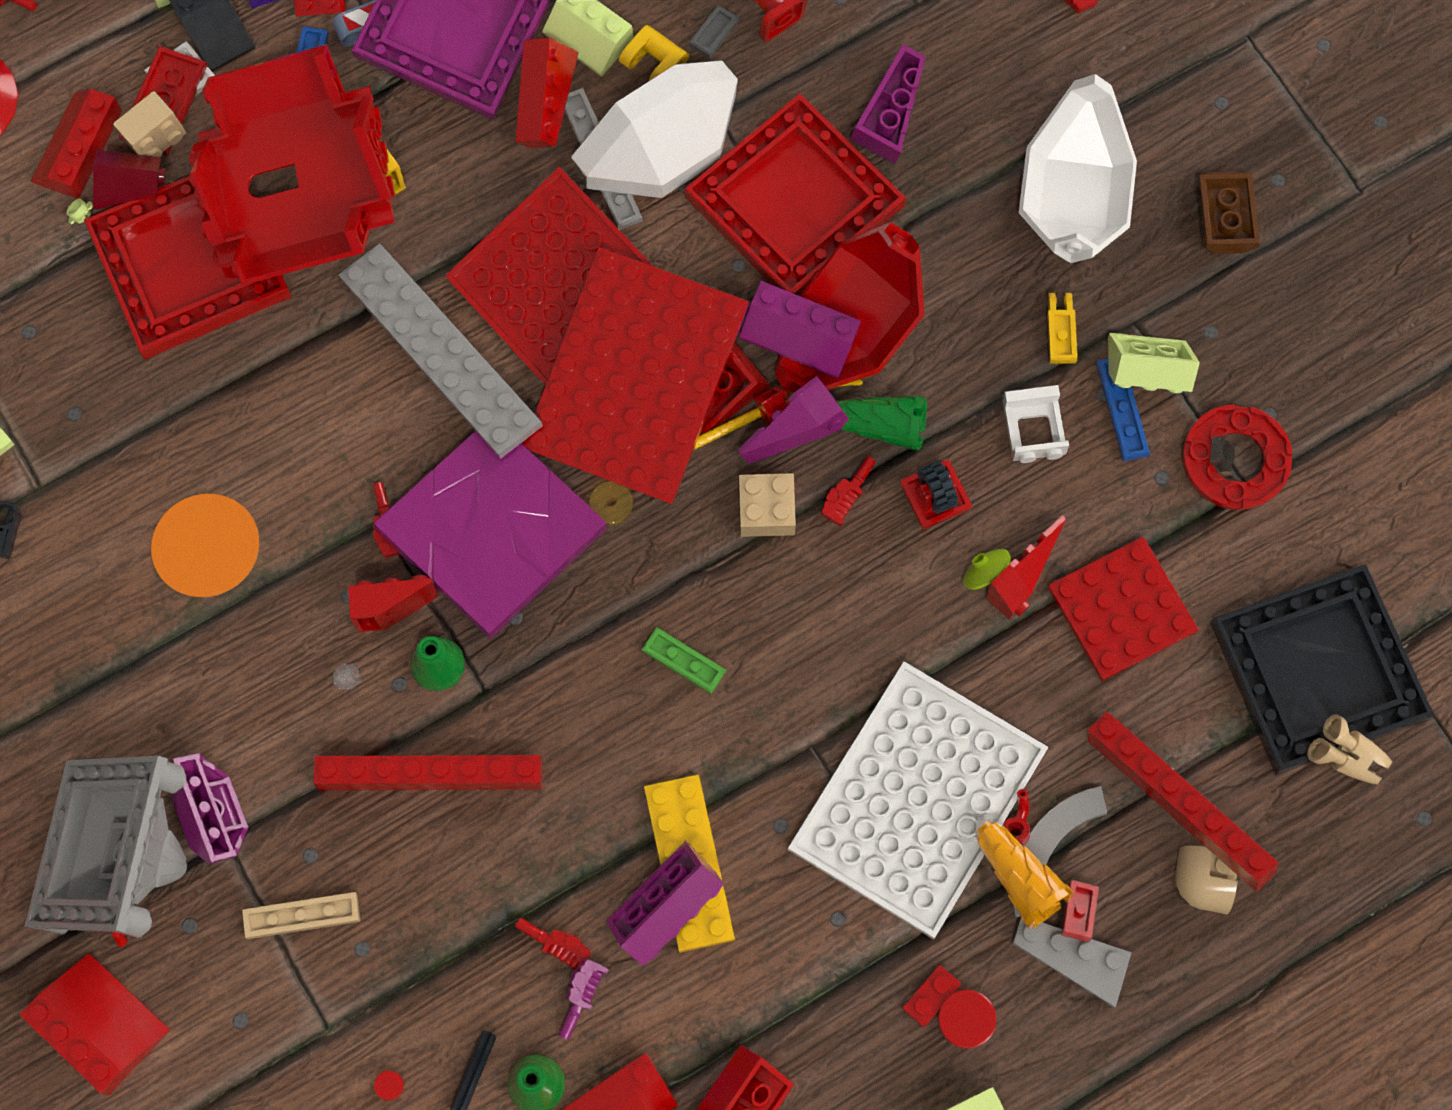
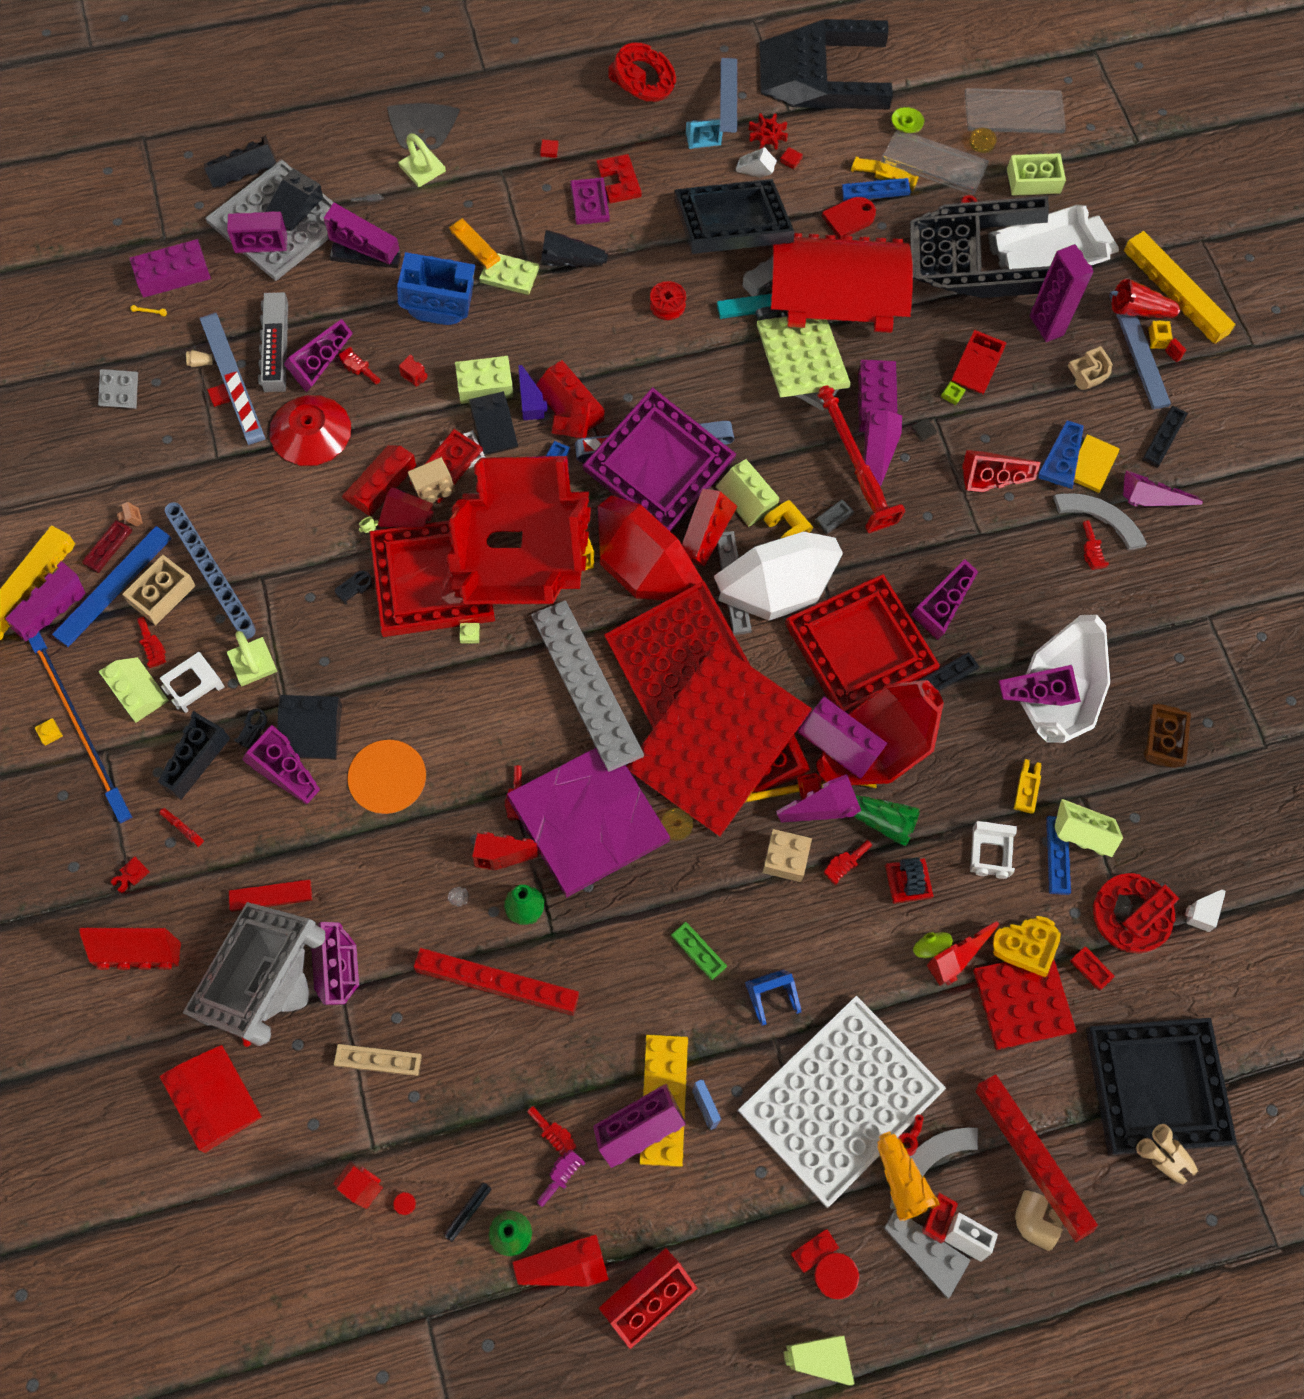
camera: 10 degrees right, 5 degrees down
(53, 566) = (279, 763): none -> magenta wedge
(79, 507) = (311, 724): none -> black slope
(81, 304) = (350, 588): none -> black piece
(96, 742) = (271, 895): none -> red tile
(261, 322) = (469, 632): none -> yellowish green plate
(322, 1077) = (358, 1185): none -> red wedge
(465, 149) = (642, 552): none -> red panel
(744, 852) = (706, 1104): none -> medium blue tile
(784, 675) = (769, 982): none -> blue hose
(925, 202) = (952, 672): none -> black tile
(1055, 189) = (1044, 687): none -> magenta wedge
(1110, 536) = (1028, 945): none -> yellow plate
(1124, 923) = (971, 1237): none -> white brick
(1200, 543) = (1092, 968): none -> red plate
(1258, 448) = (1150, 911): none -> red tile
(1329, 429) = (1205, 911): none -> white slope

